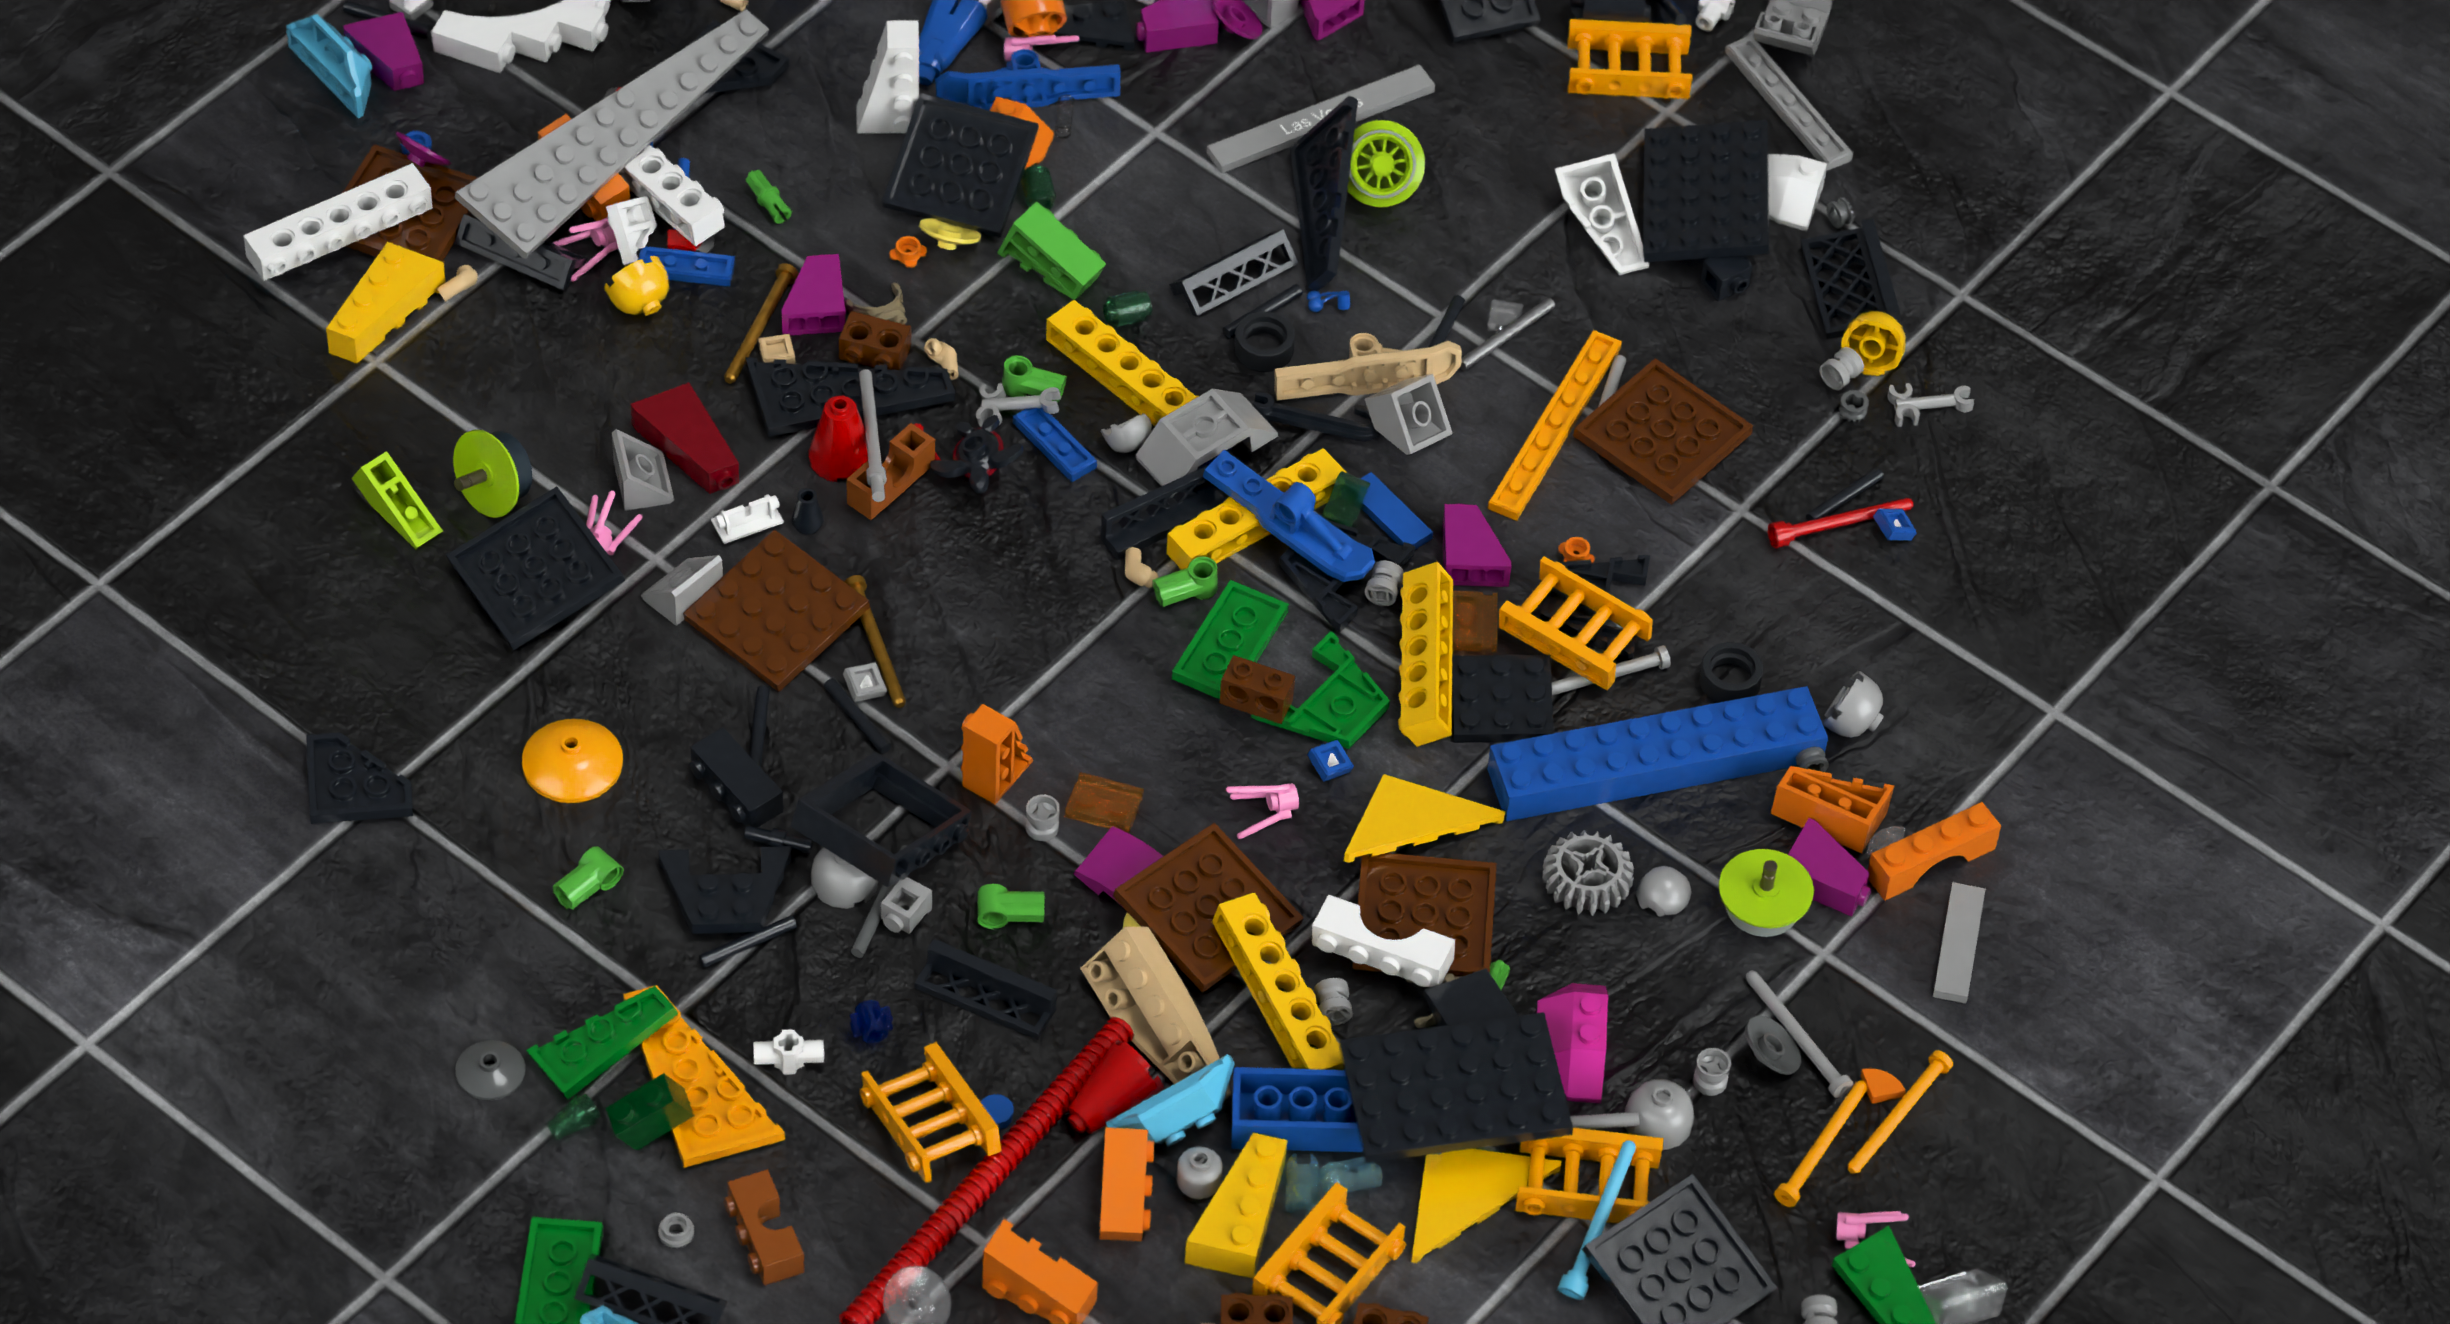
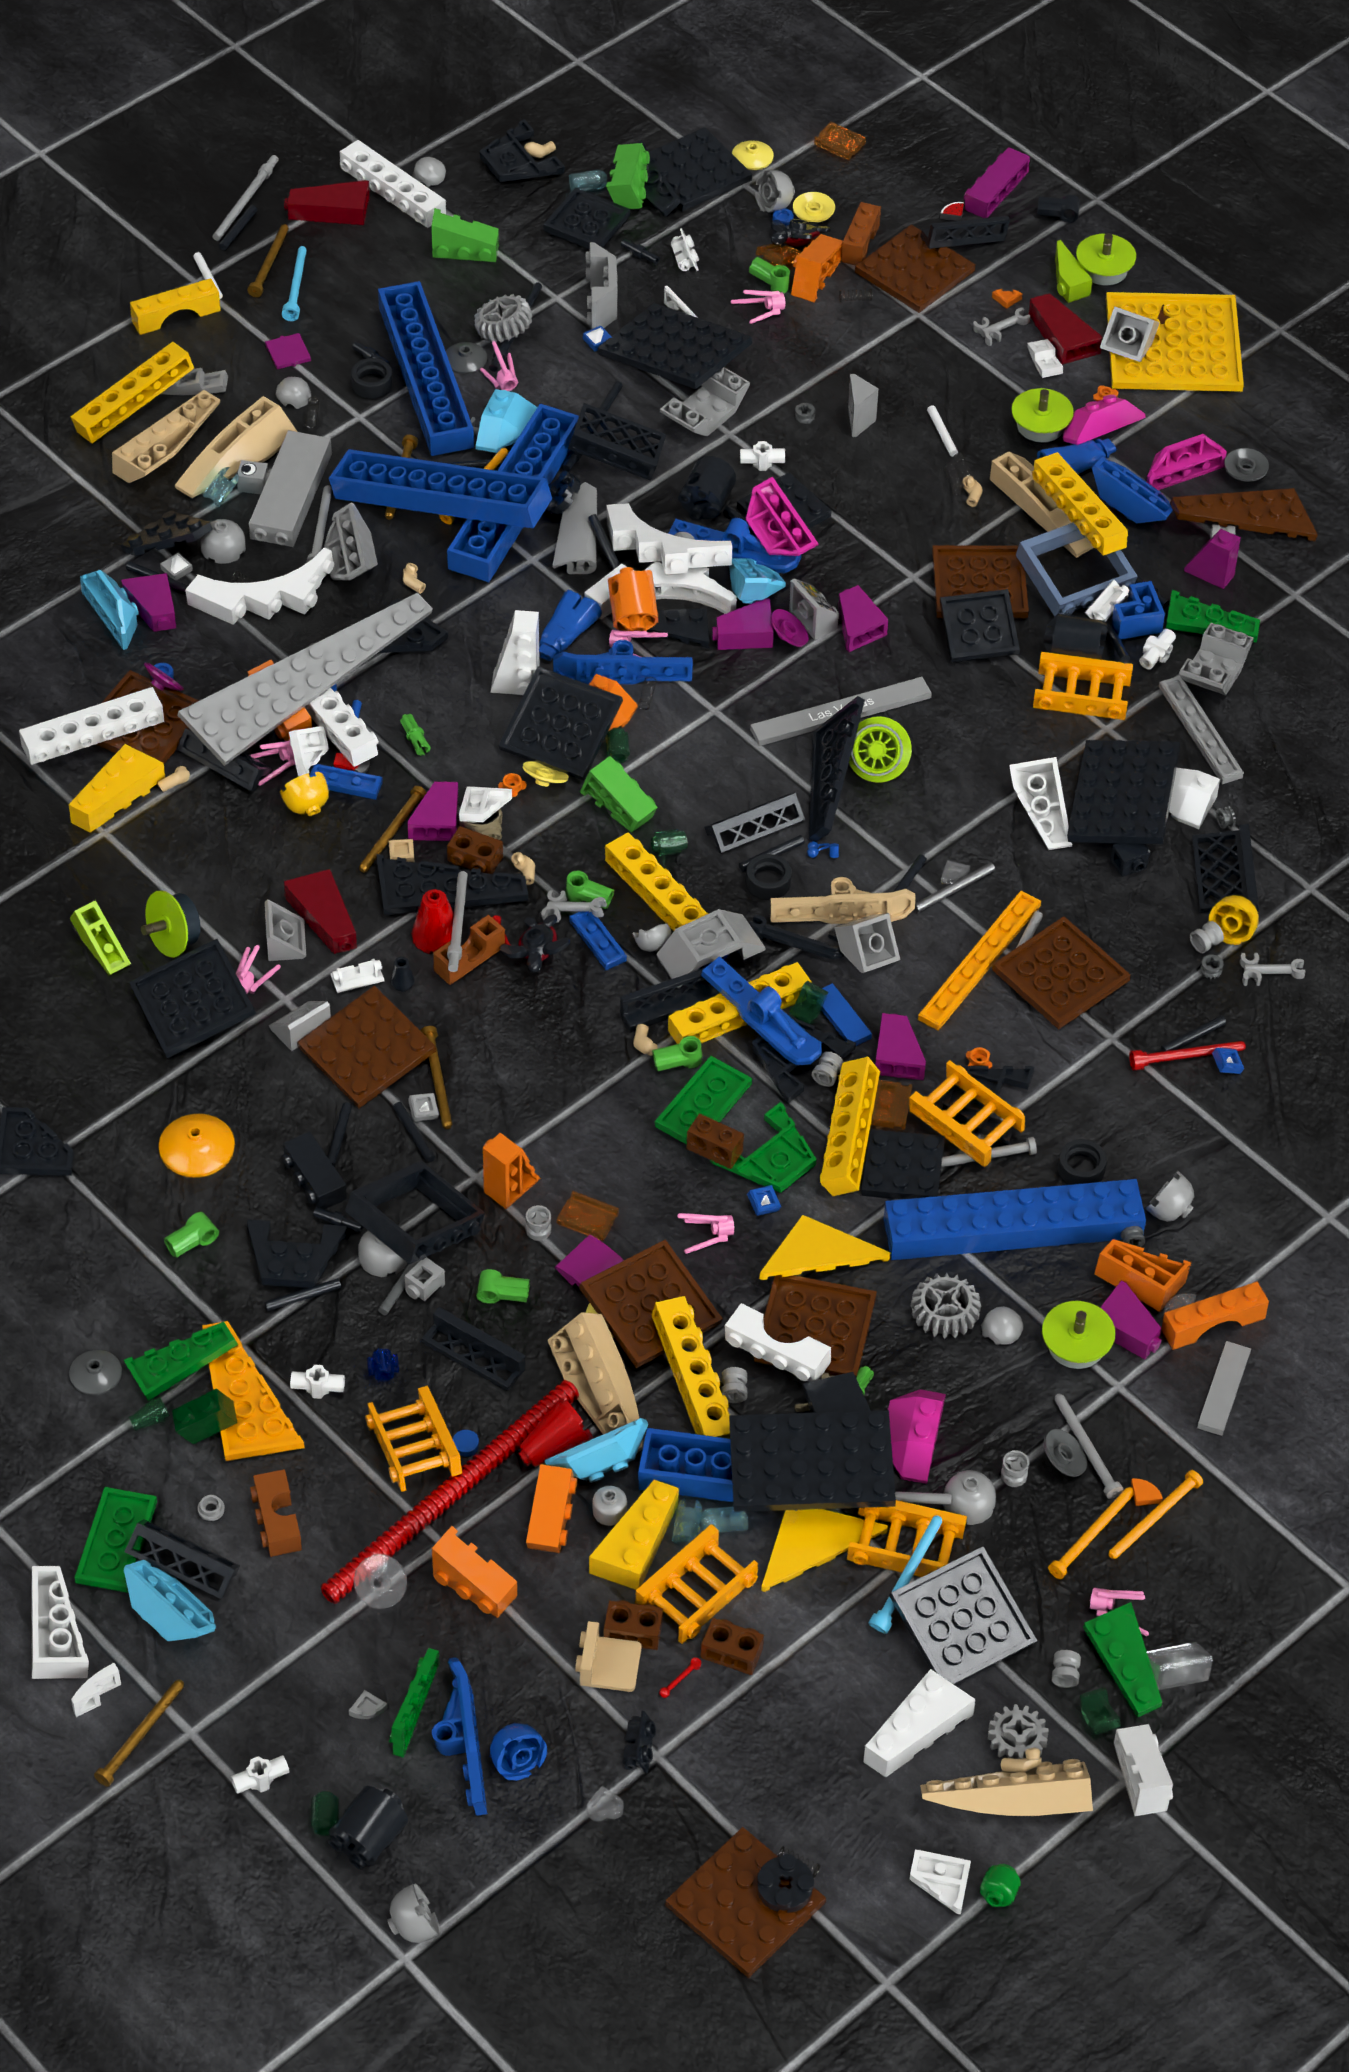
camera: 10 degrees right, 0 degrees up
(874, 278) = (482, 802): none -> white wing

